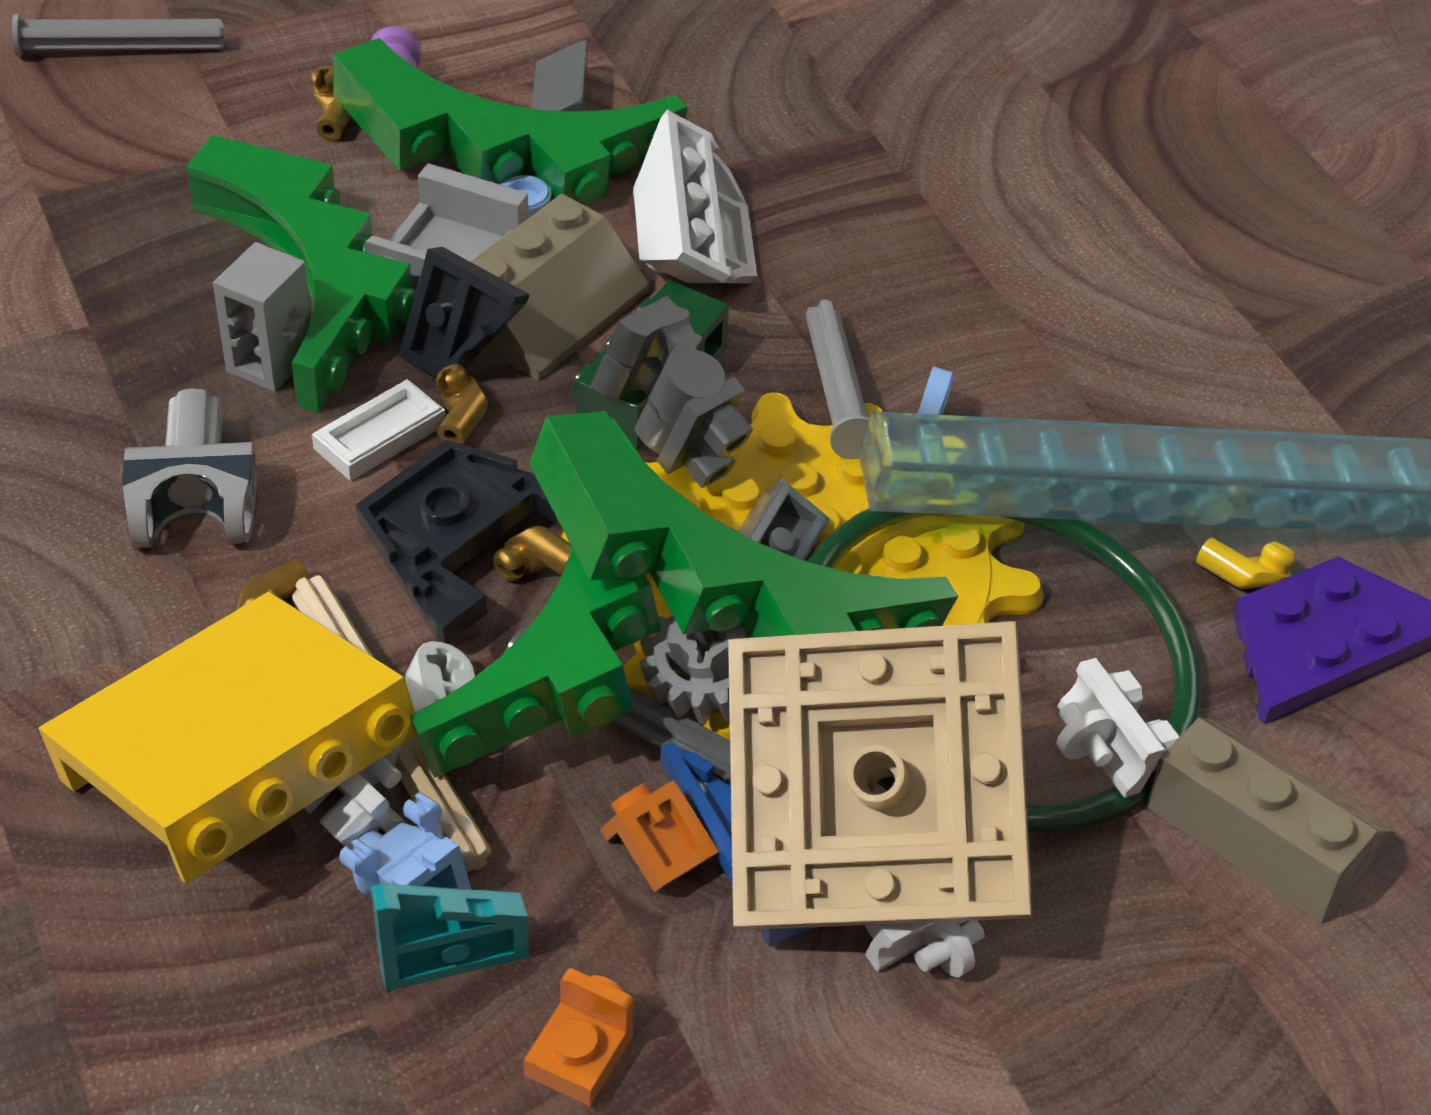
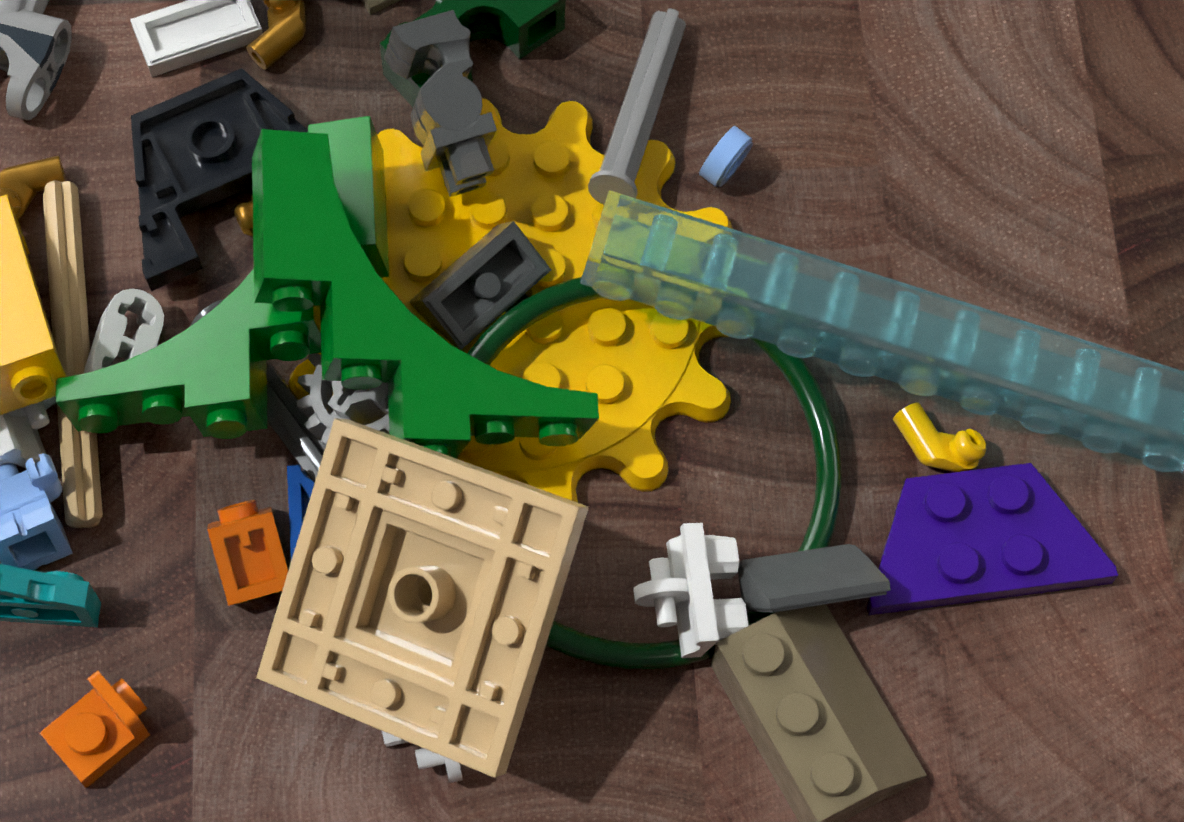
camera: 20 degrees right, 20 degrees up
(1209, 694) = (809, 578): none -> dark grey slope

